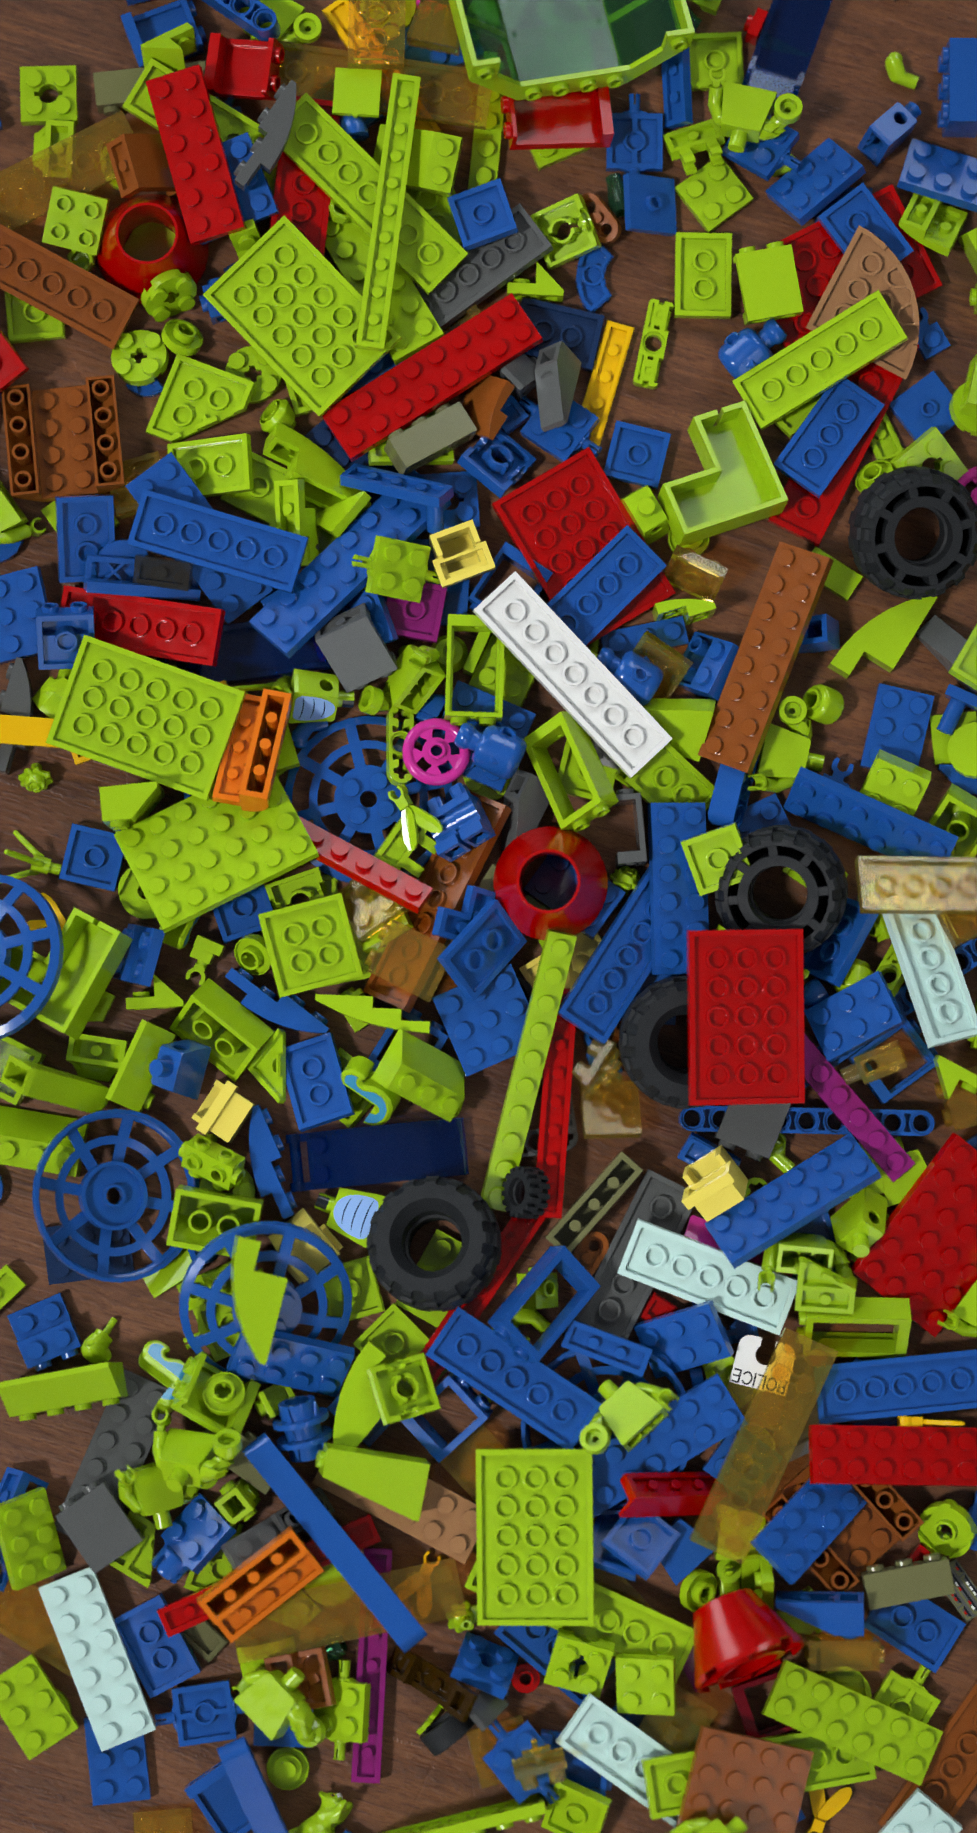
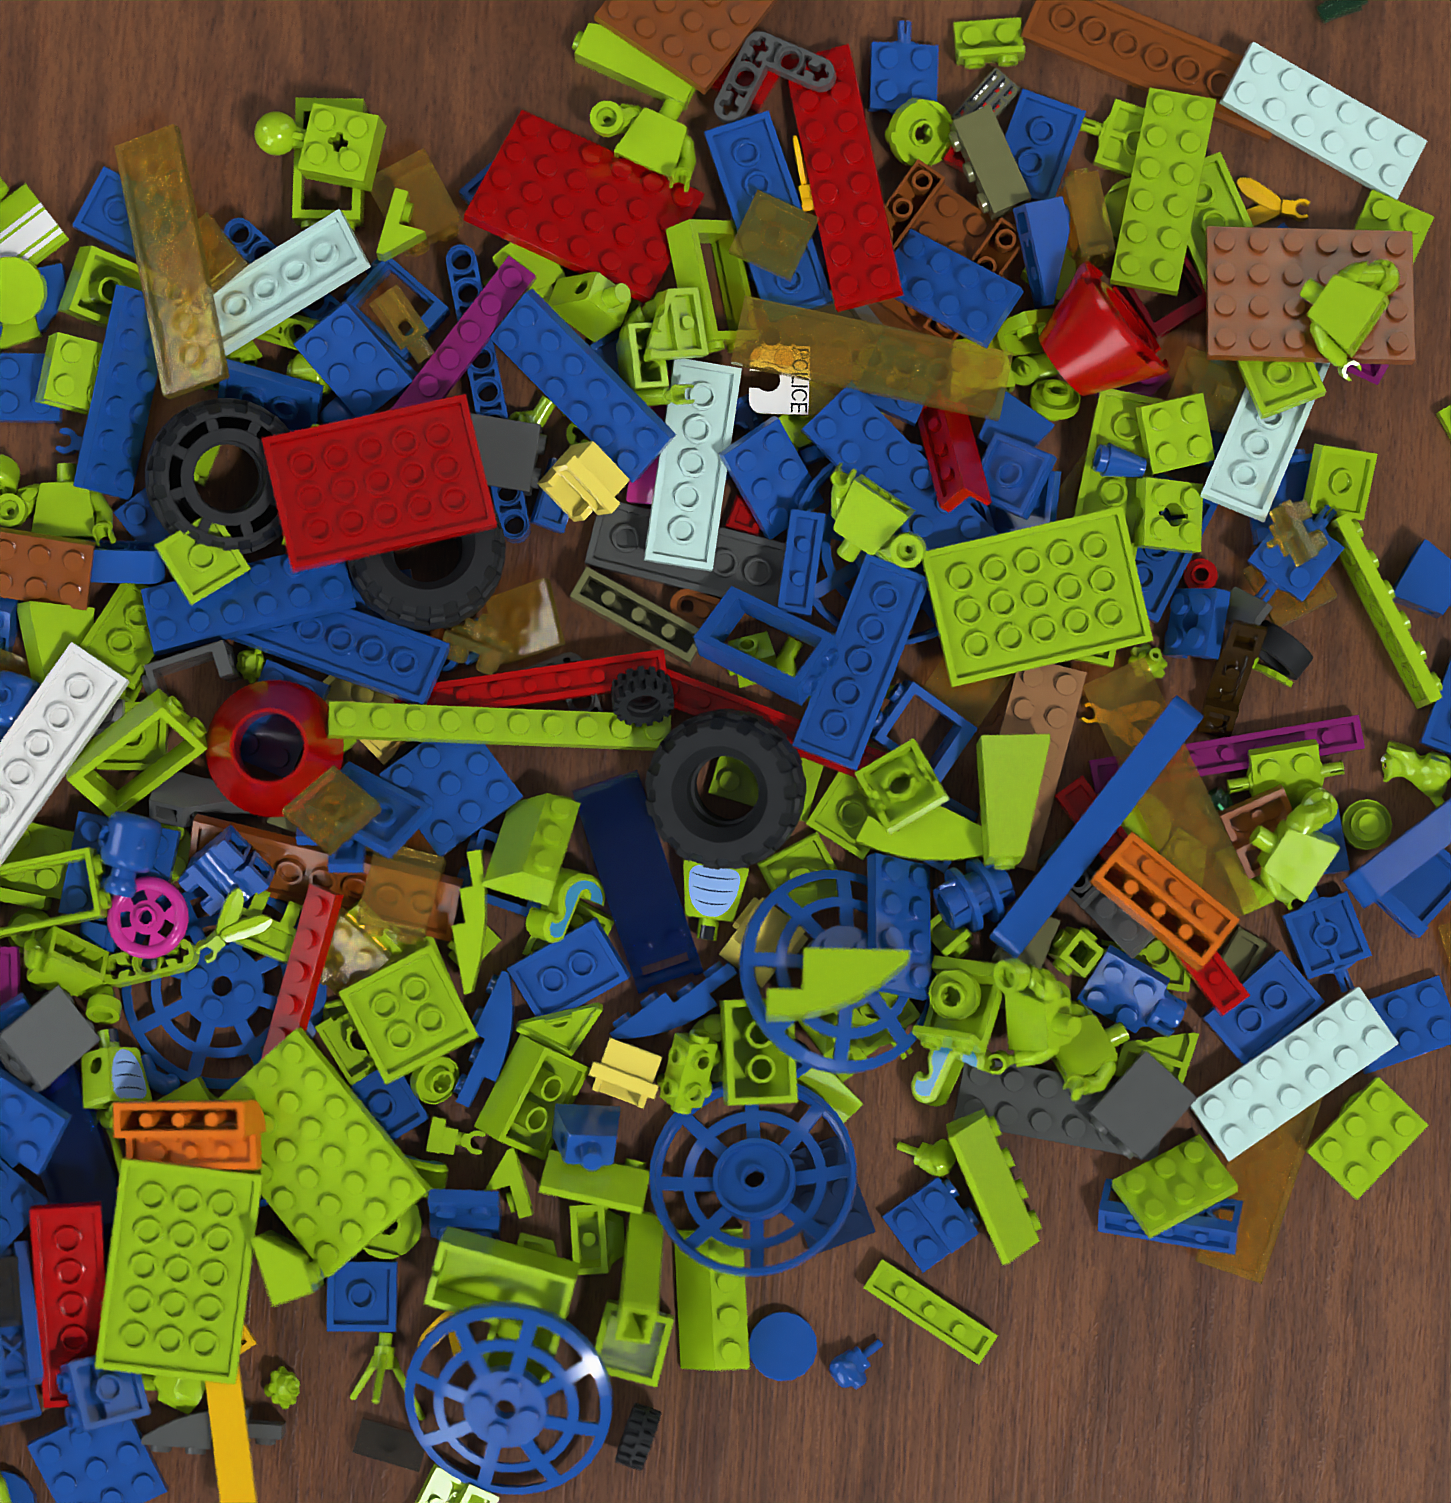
camera: 95 degrees left, 0 degrees up
(487, 920) = (332, 810): none -> clear yellow hinge
(631, 1631) = (1118, 462): none -> blue cone
(884, 1387) = (774, 235): none -> clear yellow hinge

